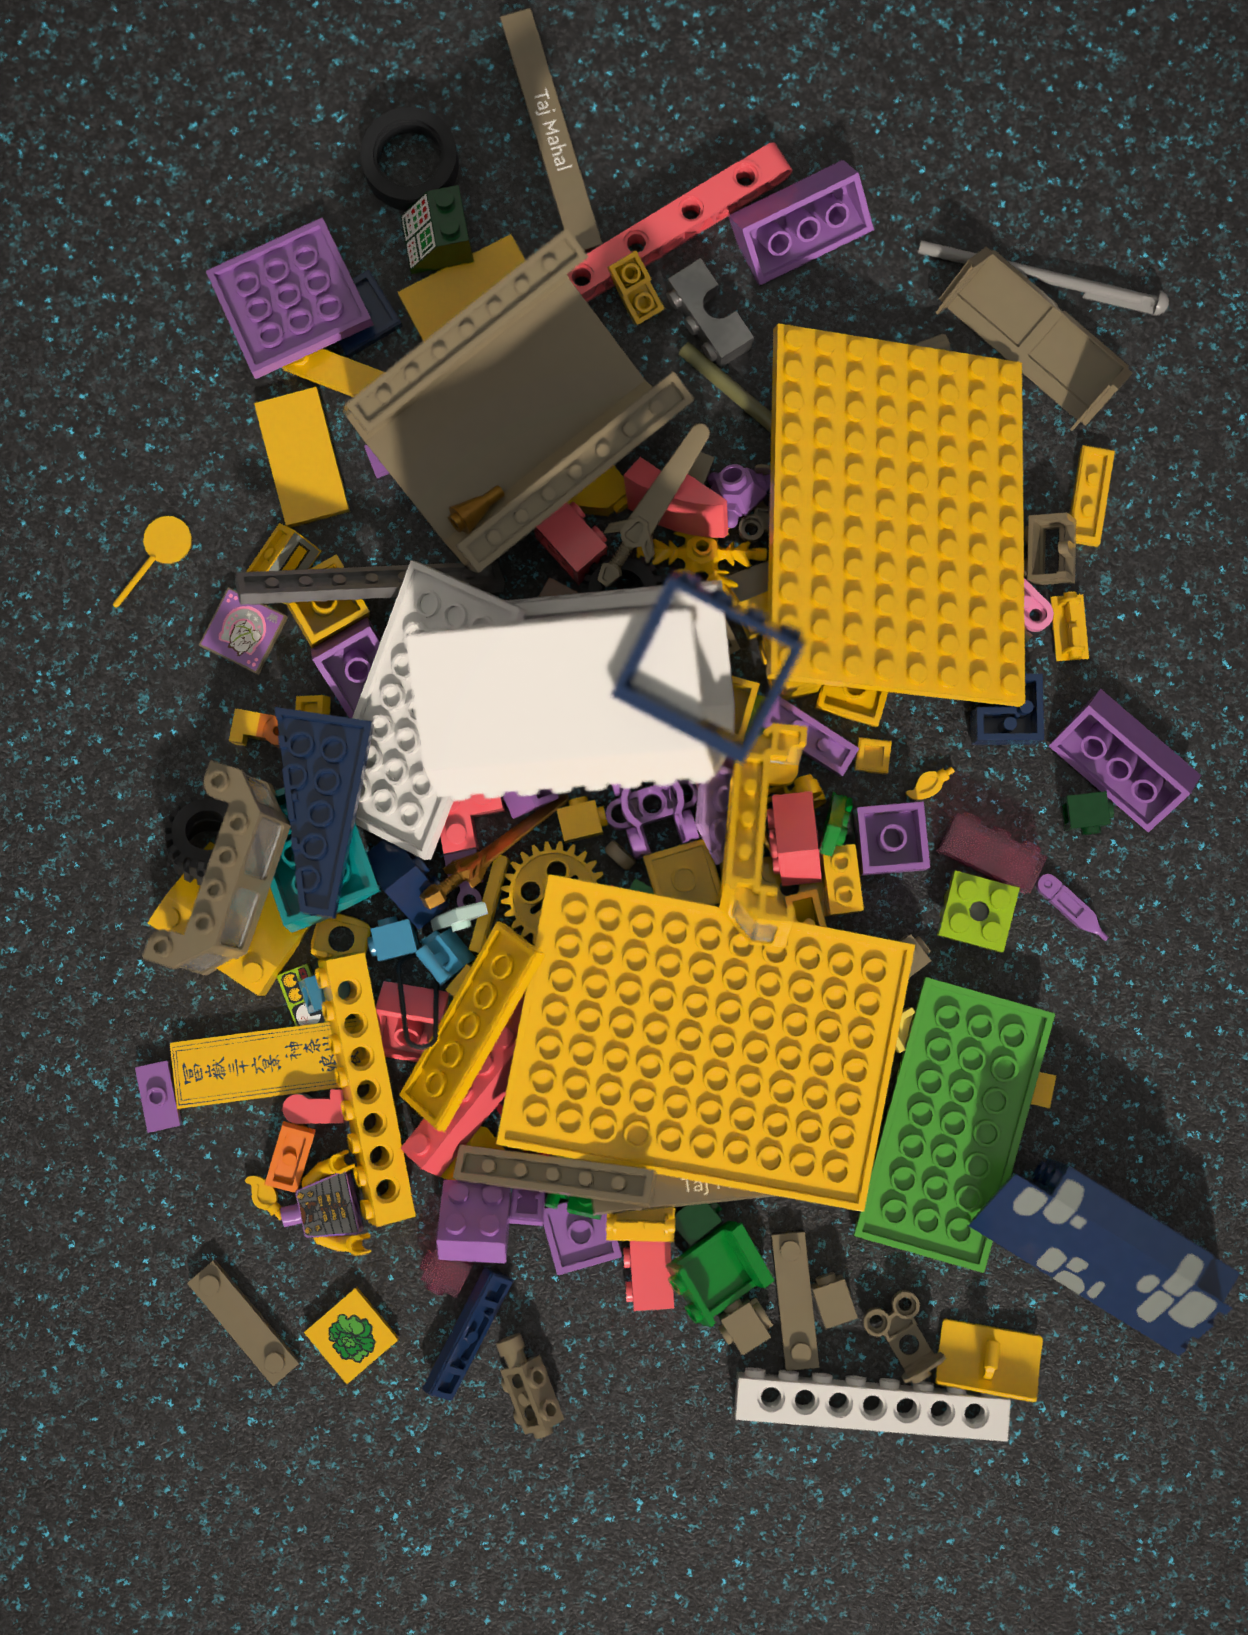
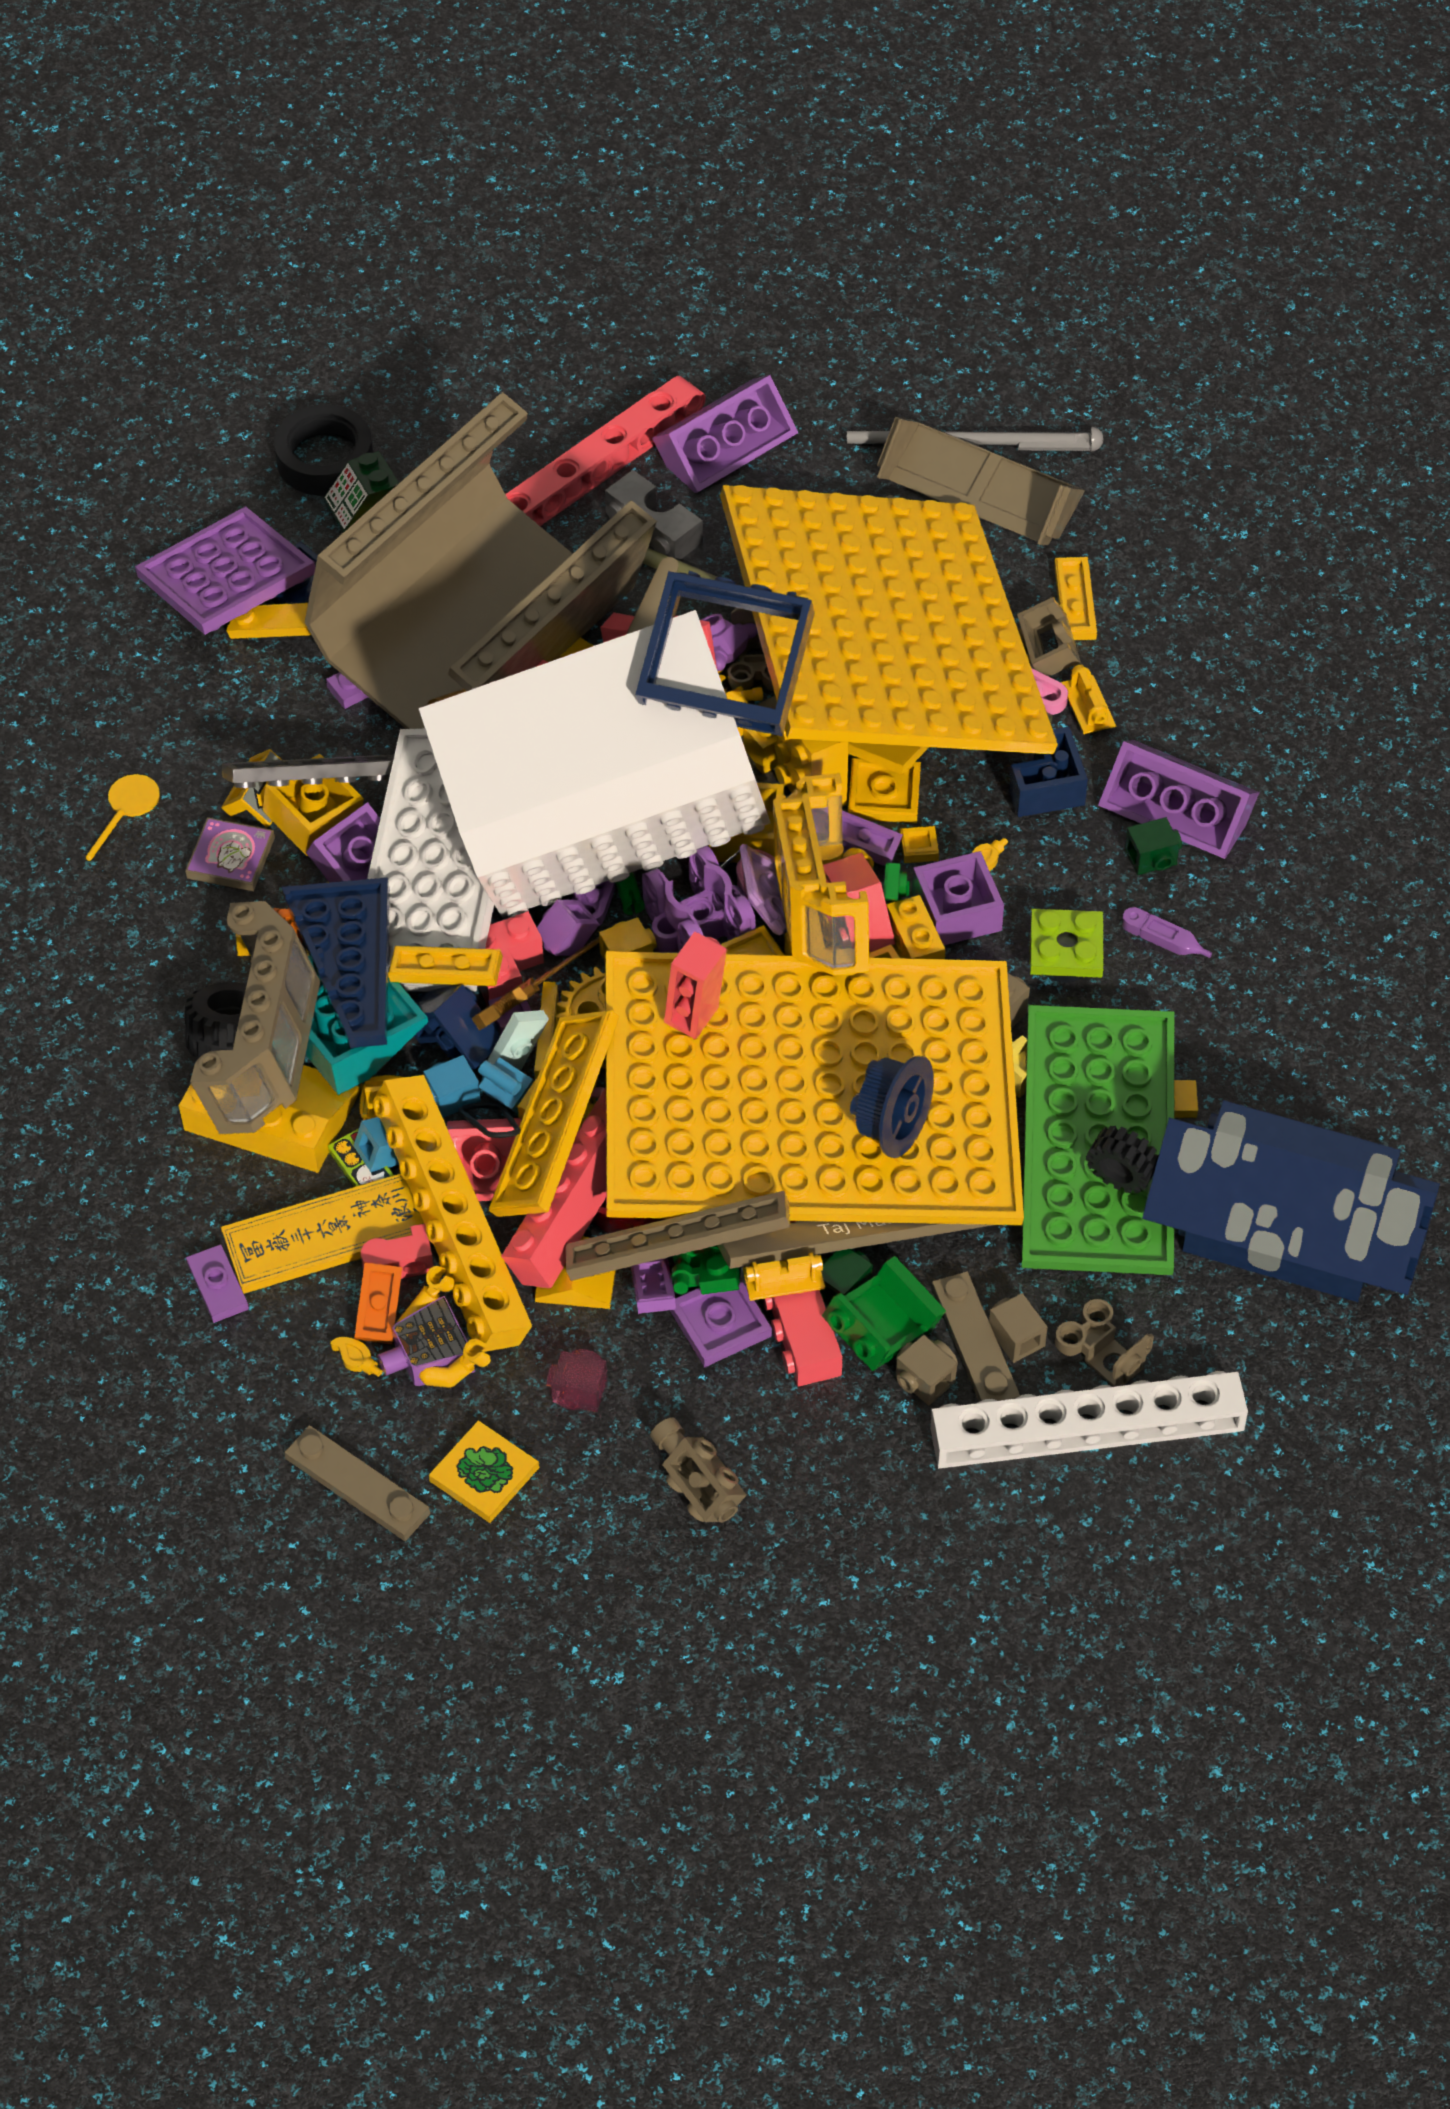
camera: 15 degrees left, 30 degrees down
(302, 457) = (263, 700): yellow tile -> none
(404, 839) = (445, 965): none -> yellow tile
(467, 1334) = (616, 1439): dark blue plate -> none
(473, 1222) = (599, 1313): medium lavender brick -> none
(550, 128) = (450, 395): dark tan tile -> none
(617, 958) = (695, 984): none -> coral brick
(635, 288) = (574, 509): yellow slope -> none
(770, 1102) = (894, 1102): none -> dark blue piece
(966, 1176) = (1122, 1159): none -> black tyre
(989, 1360) = (1206, 1348): yellow shield -> none
(992, 852) = (1064, 890): clear pink brick -> none

